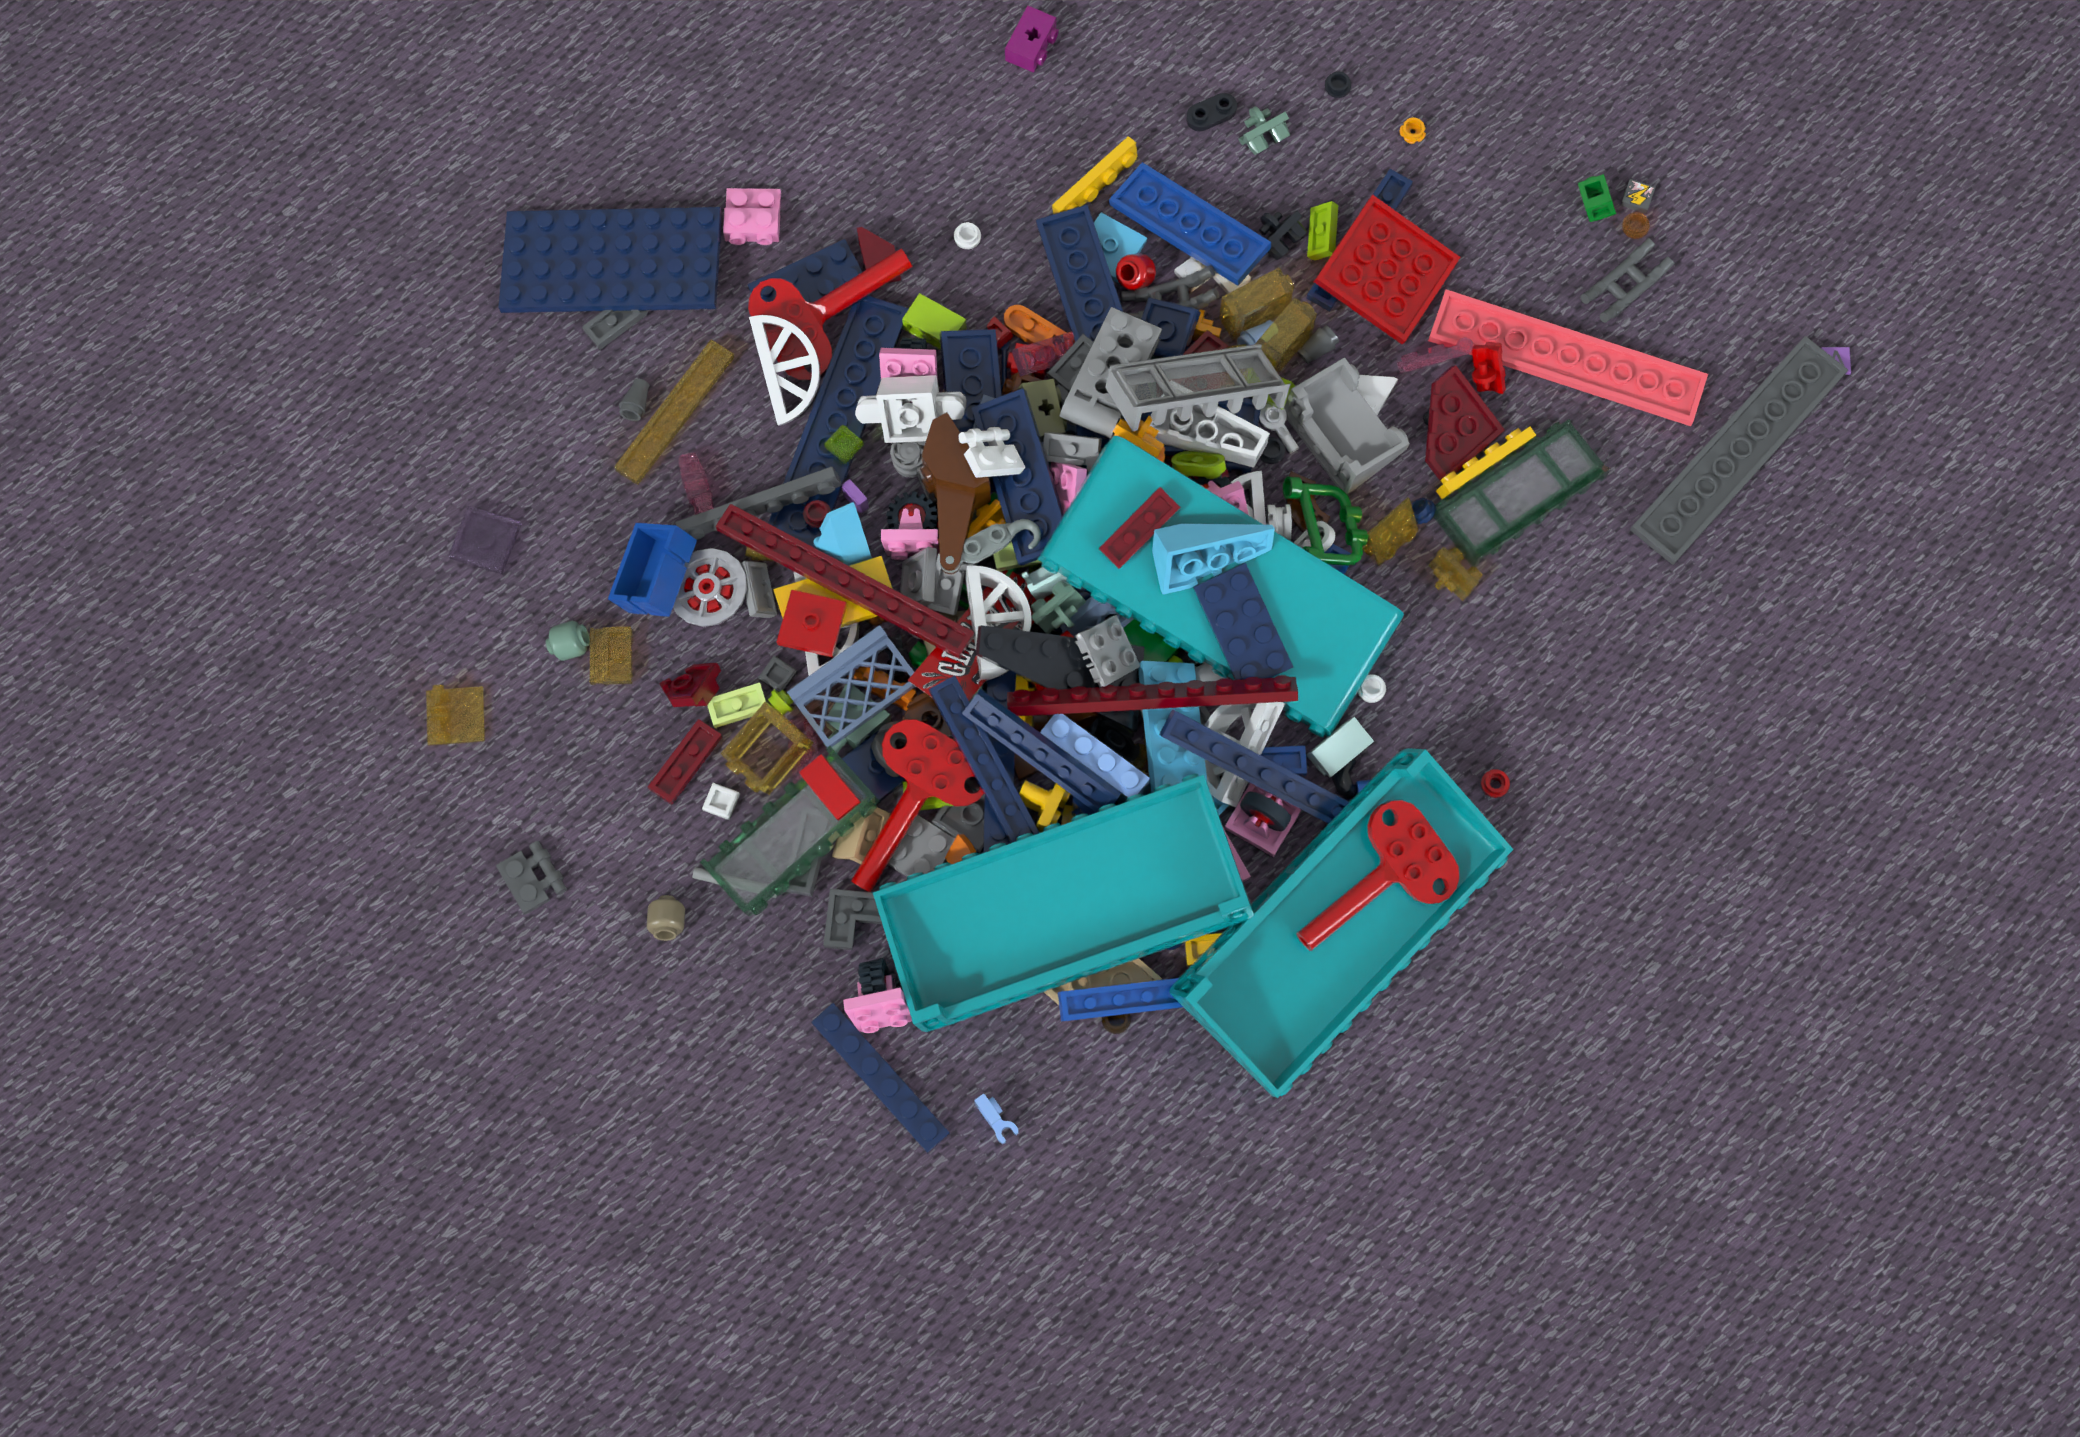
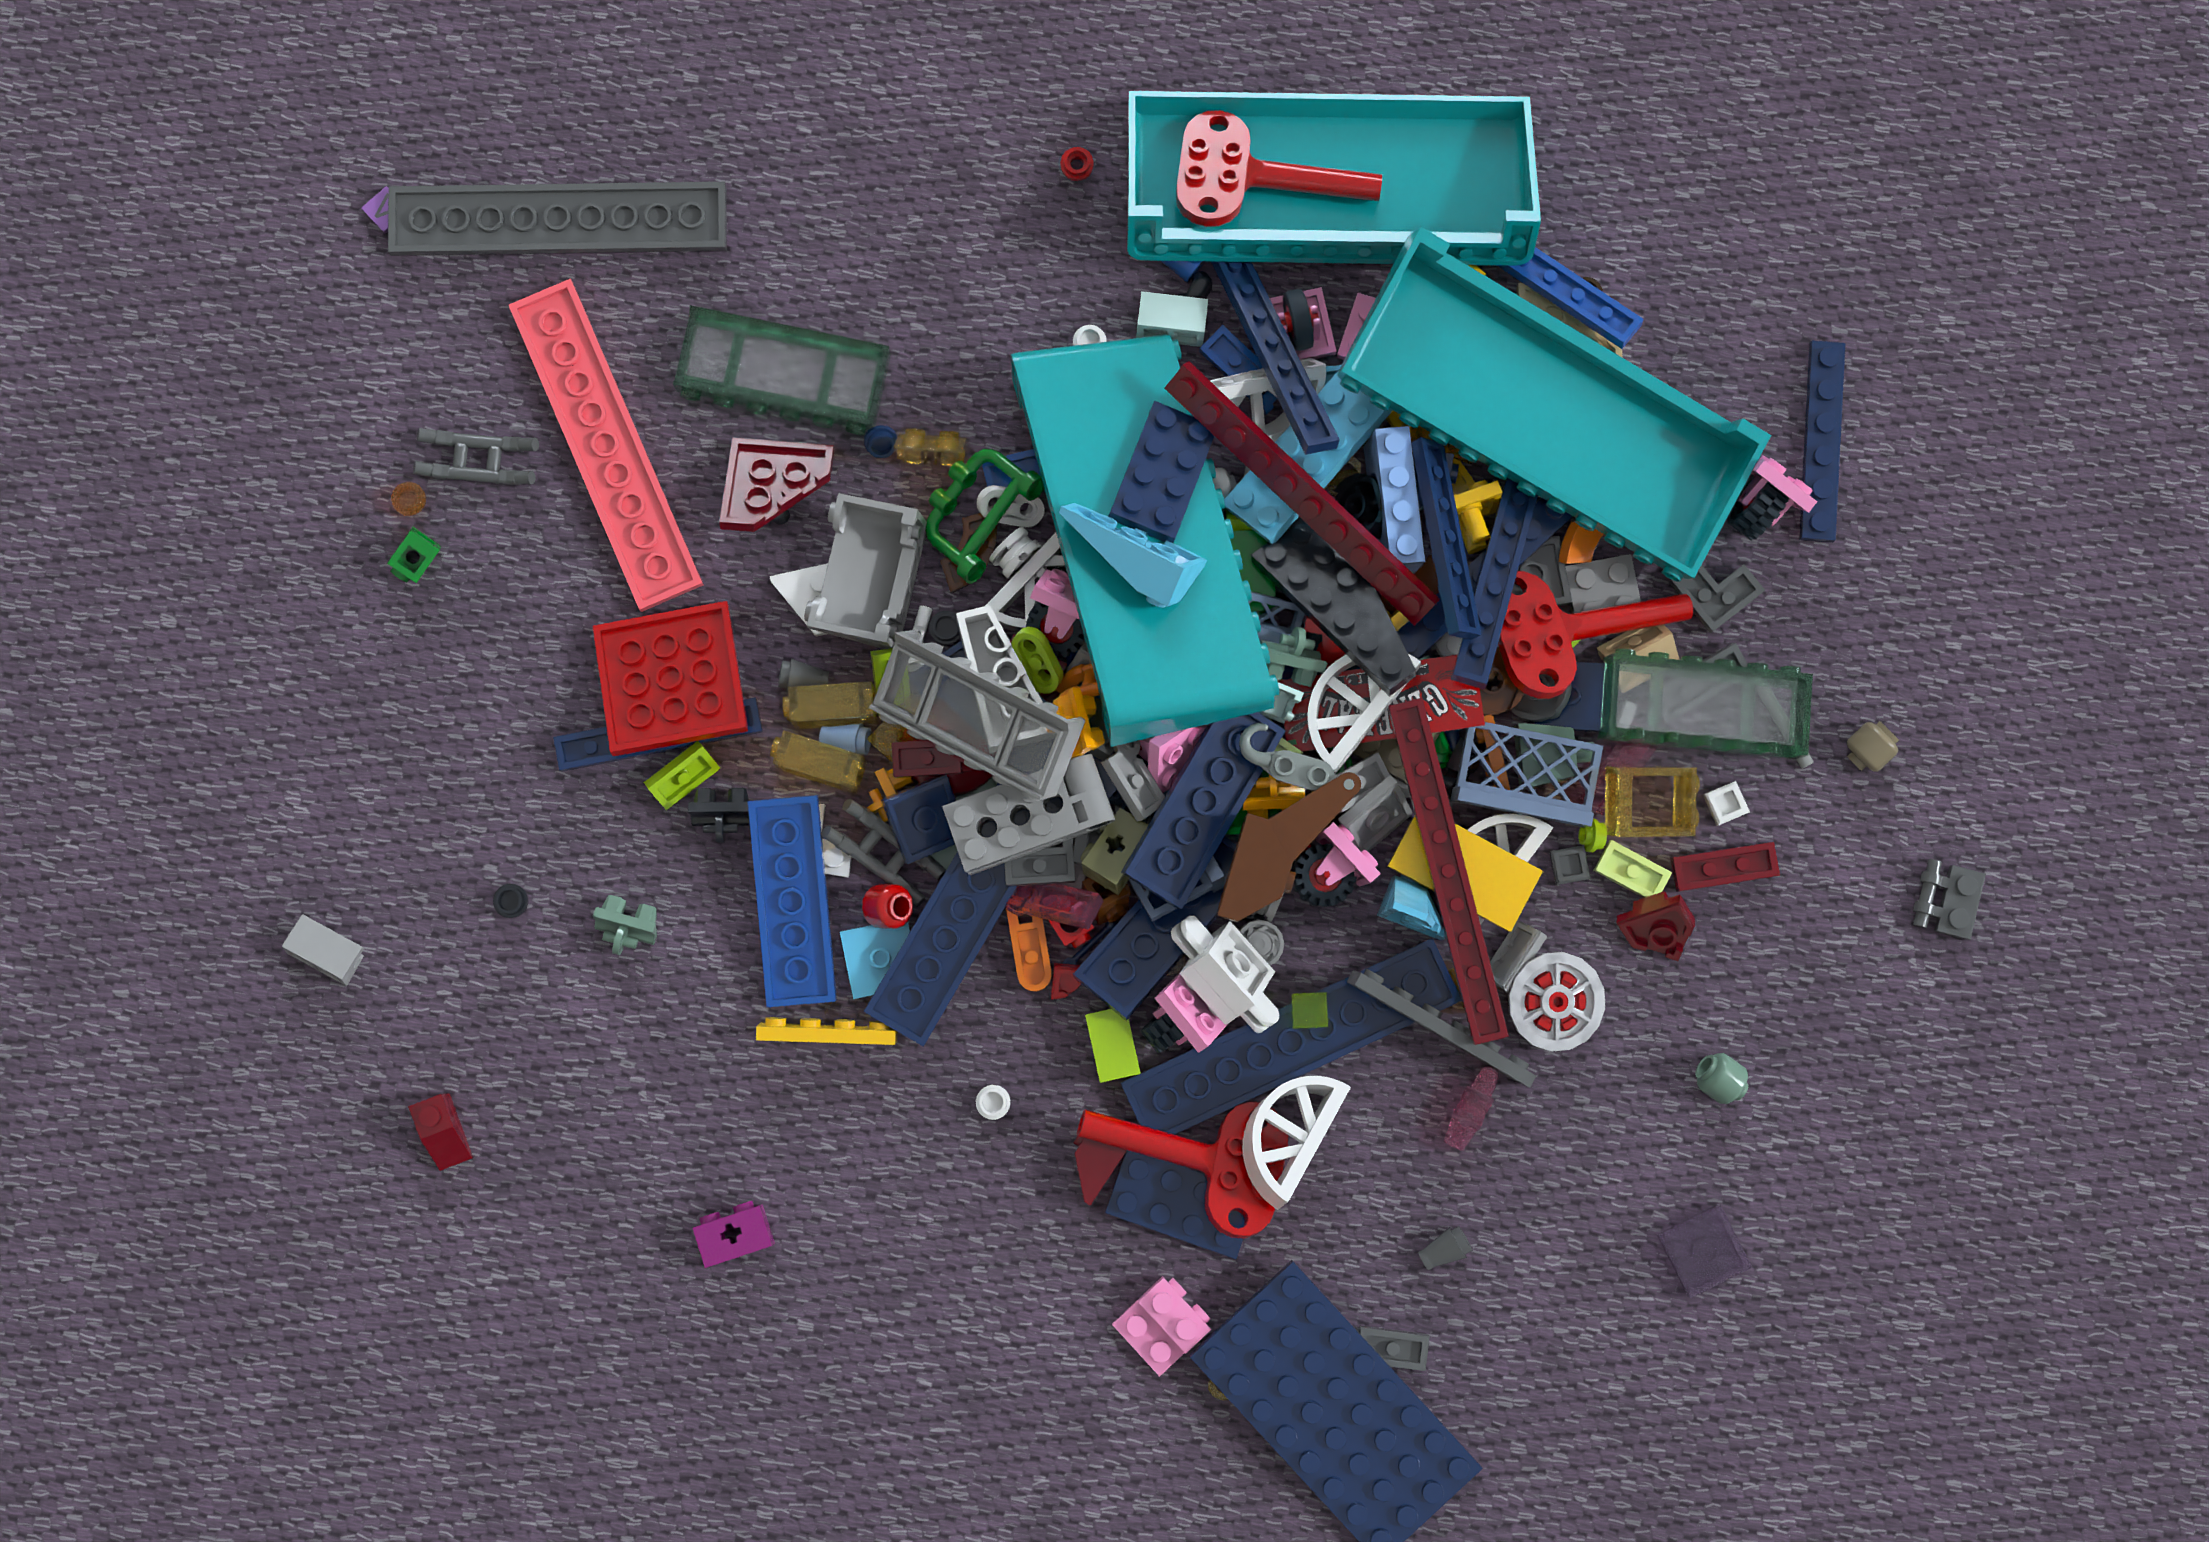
camera: 140 degrees left, 10 degrees up
(455, 715) = (1880, 1112): clear yellow hinge -> none
(611, 655) = (1696, 1027): clear yellow plate -> none
(652, 569) = (1594, 1061): blue piece -> none
(674, 412) = (1422, 1201): clear yellow plate -> none
(811, 623) = (1512, 863): red plate -> none
(815, 513) = (1398, 968): dark red plate -> none
(829, 787) = (1646, 698): red slope -> none
(854, 495) = (1346, 954): medium lavender tile -> none
(990, 1110) = (1764, 321): light blue plate -> none
(993, 459) = (1221, 827): white plate -> none
(1108, 651) = (1297, 569): light grey hinge -> none
(1139, 528) = (1173, 627): dark red plate -> none
(1212, 111) = (649, 993): black plate -> none
(1416, 125) = (487, 783): light orange plate -> none
(1436, 355) = (719, 556): clear pink plate -> none
(1452, 574) = (919, 362): clear yellow hips -> none
(1476, 467) = (792, 425): yellow plate -> none
(1488, 367) = (687, 498): red hips -> none
(1637, 196) = (374, 523): tile -> none

